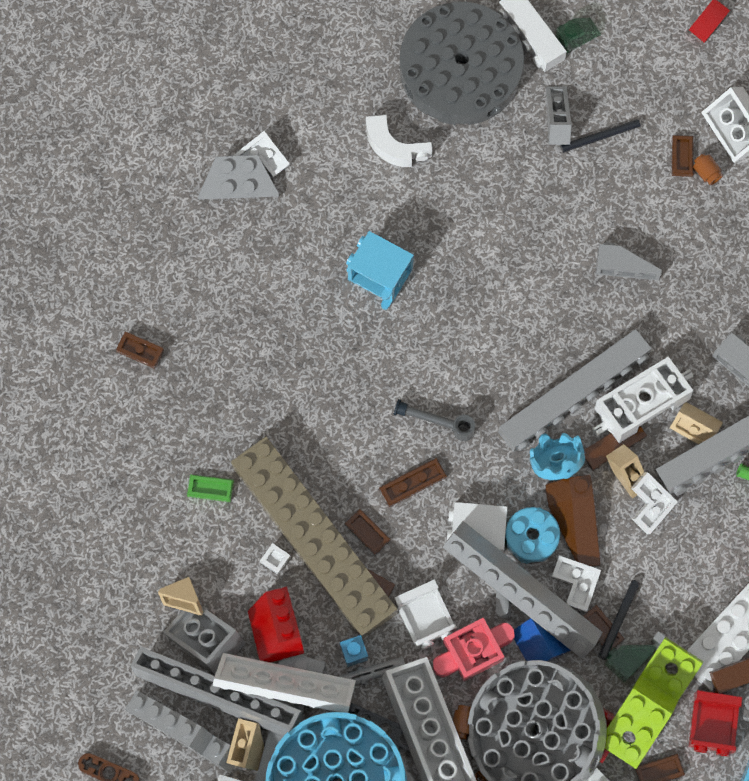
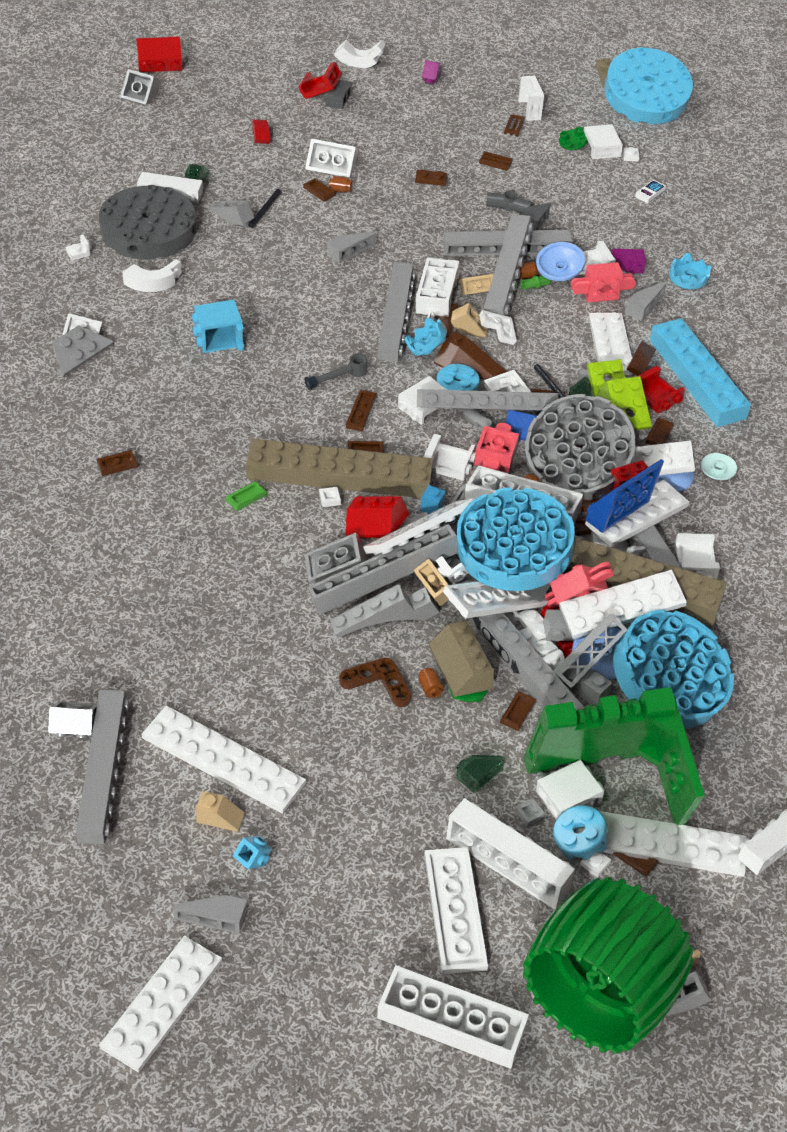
camera: 50 degrees left, 25 degrees down
(181, 596) = (300, 550): tan slope -> none
(262, 749) = (455, 574): none -> white bracket
(365, 44) = (79, 250): none -> white bracket

